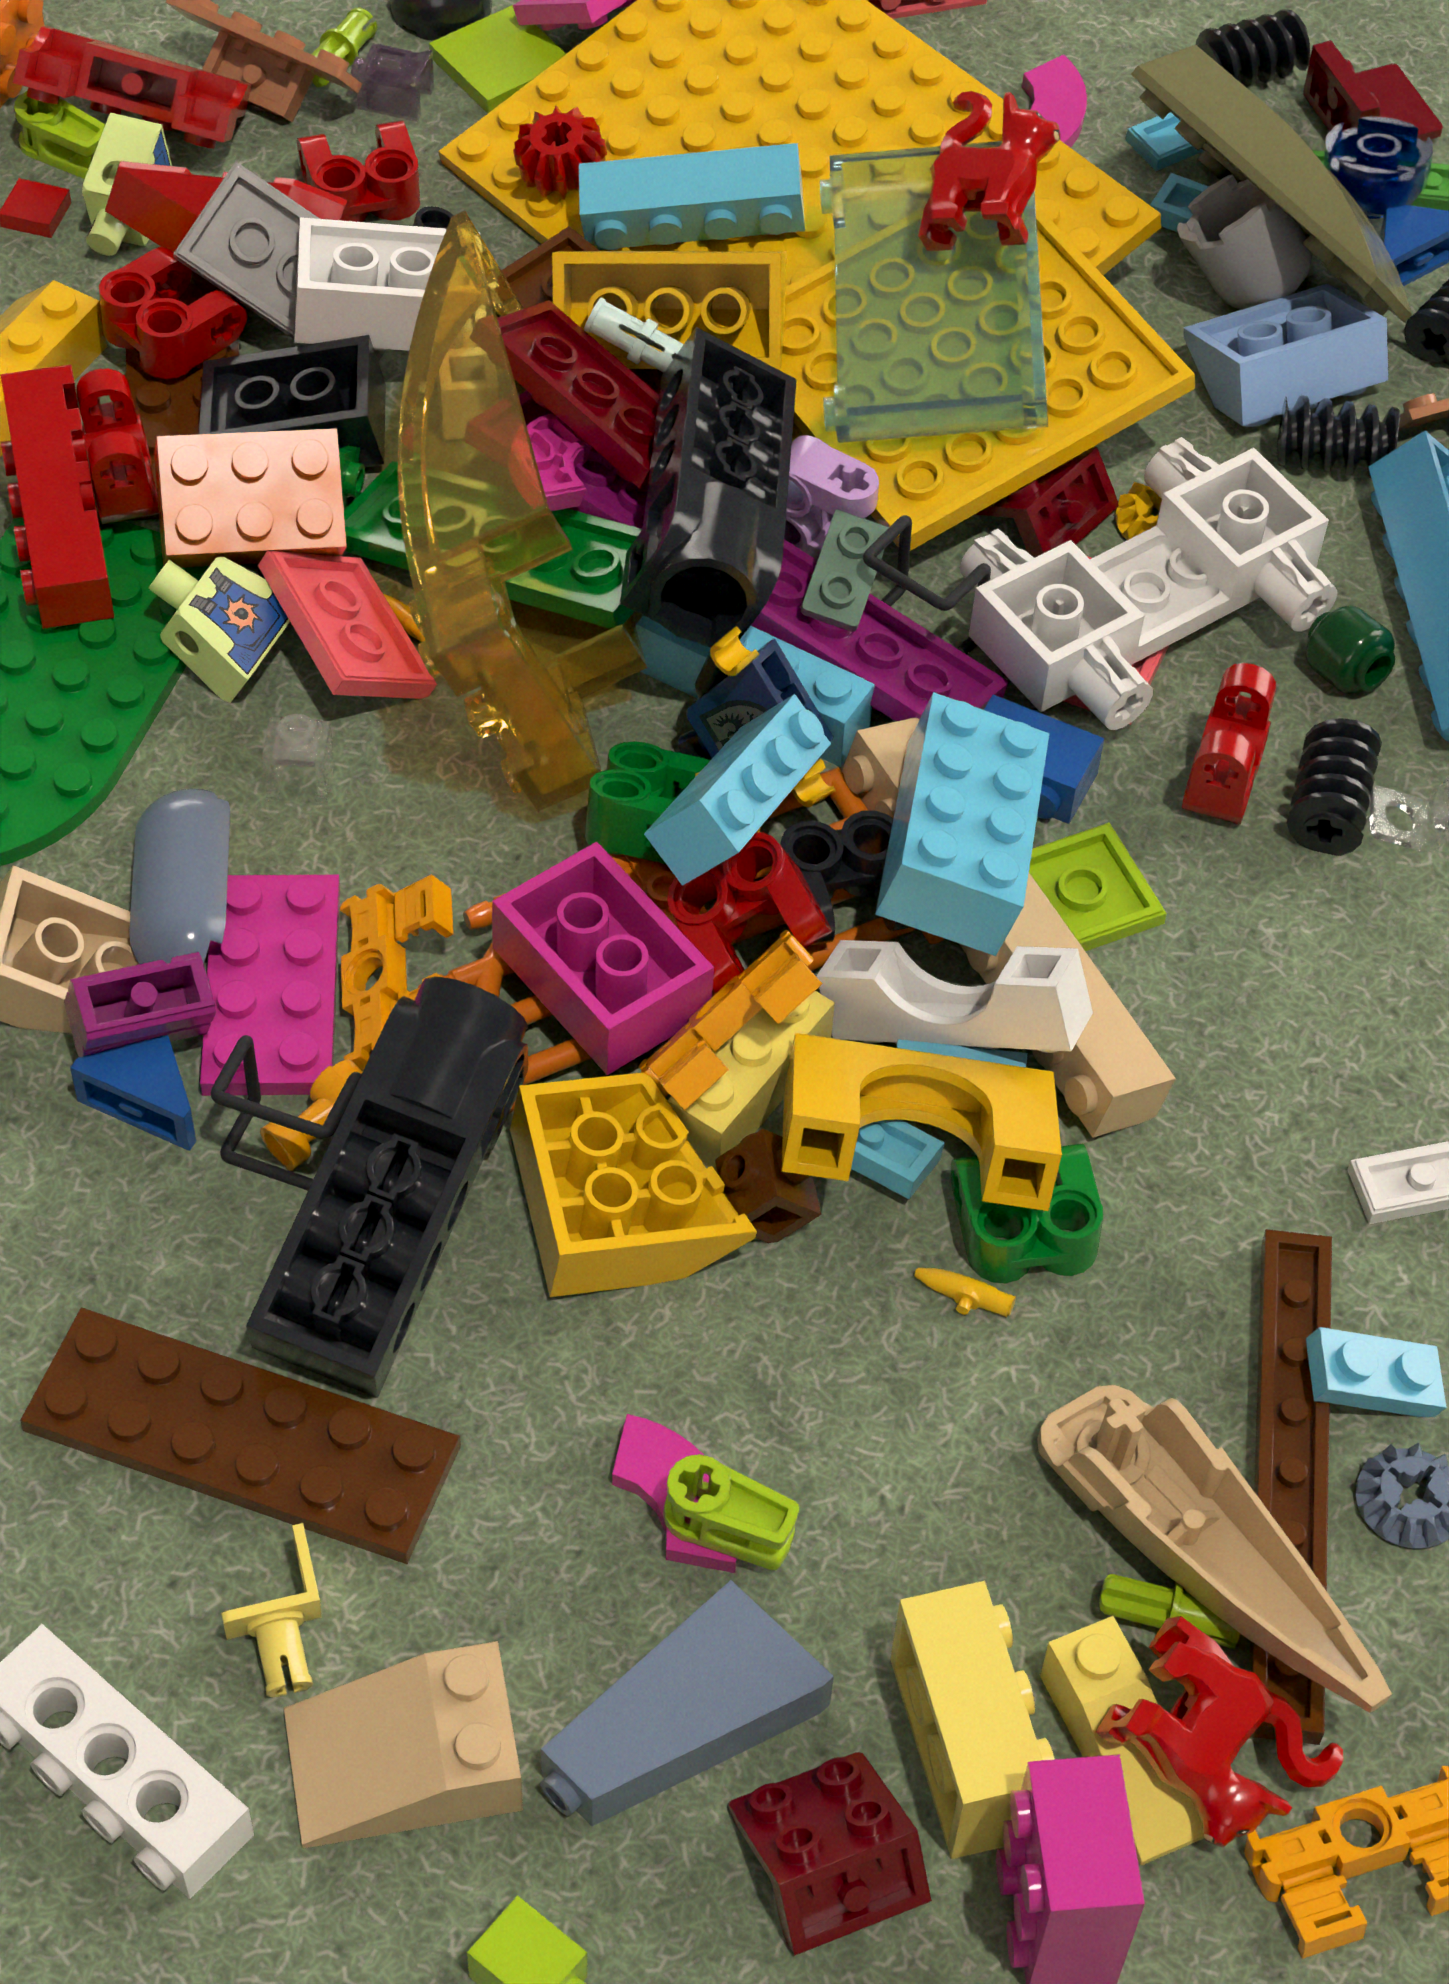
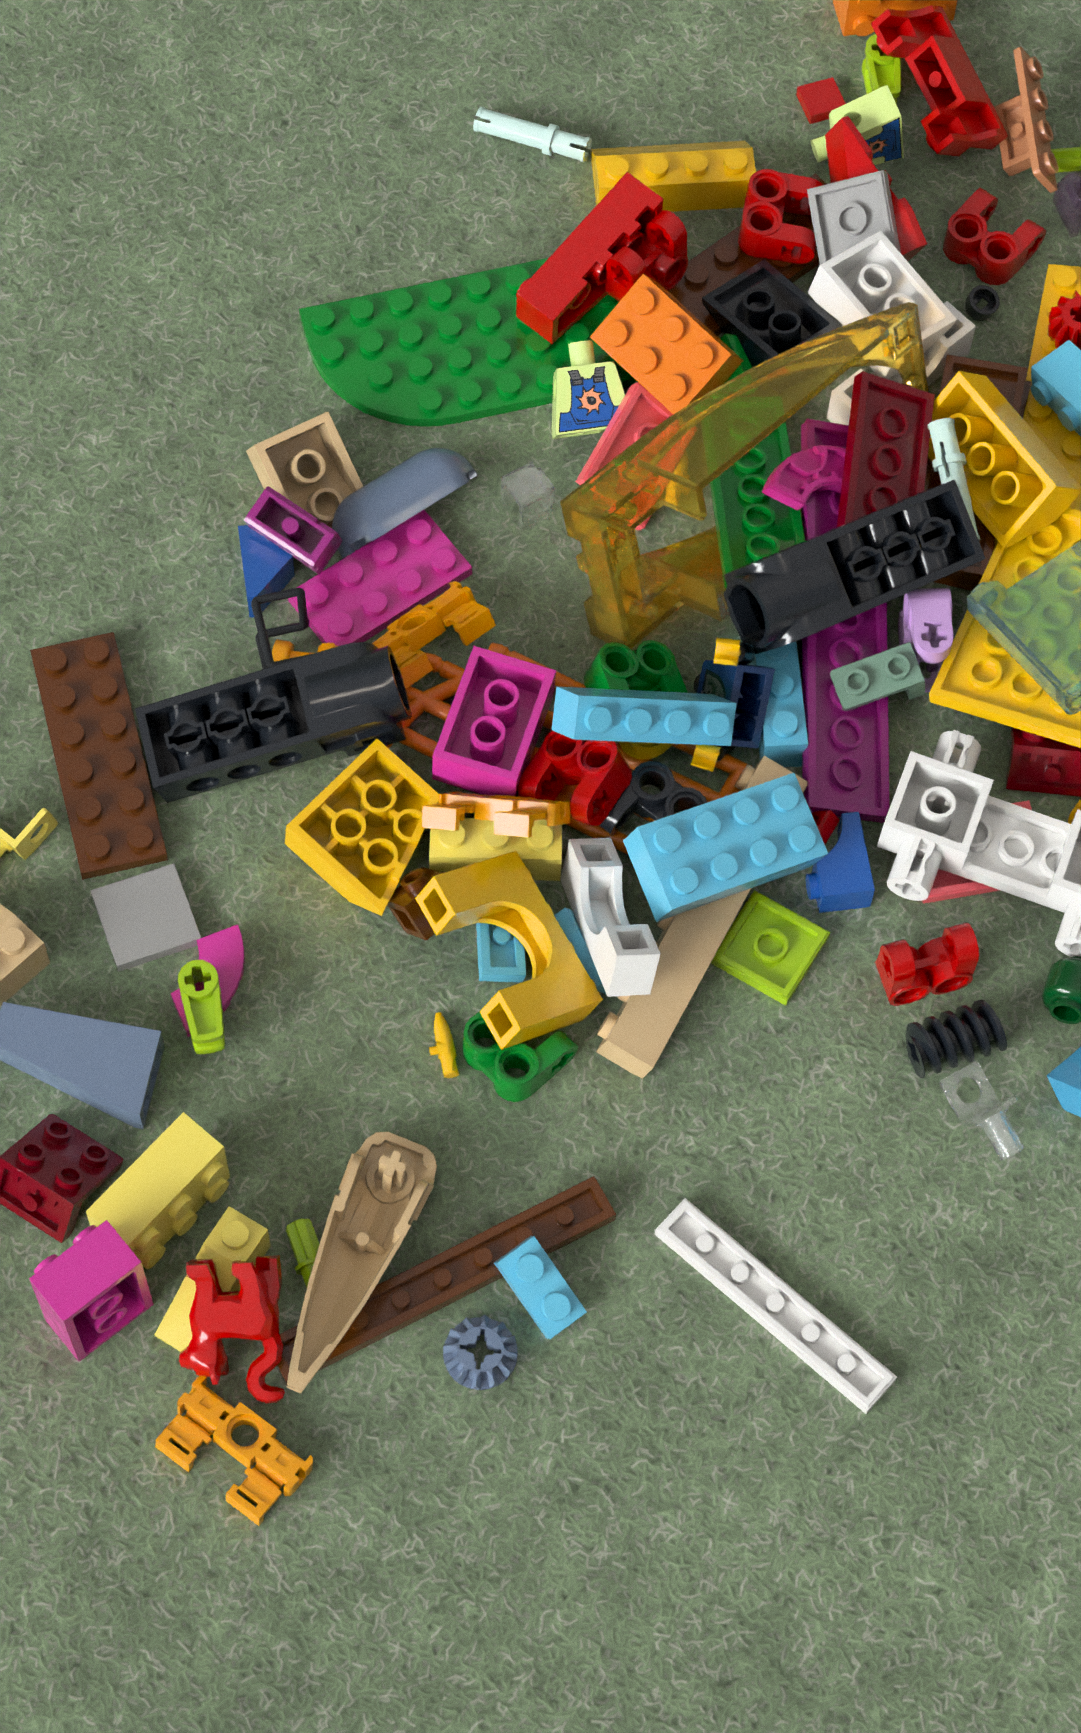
camera: 55 degrees right, 10 degrees up
(527, 1517) = (146, 917): none -> light grey tile
(903, 526) = (909, 718): black piece -> none

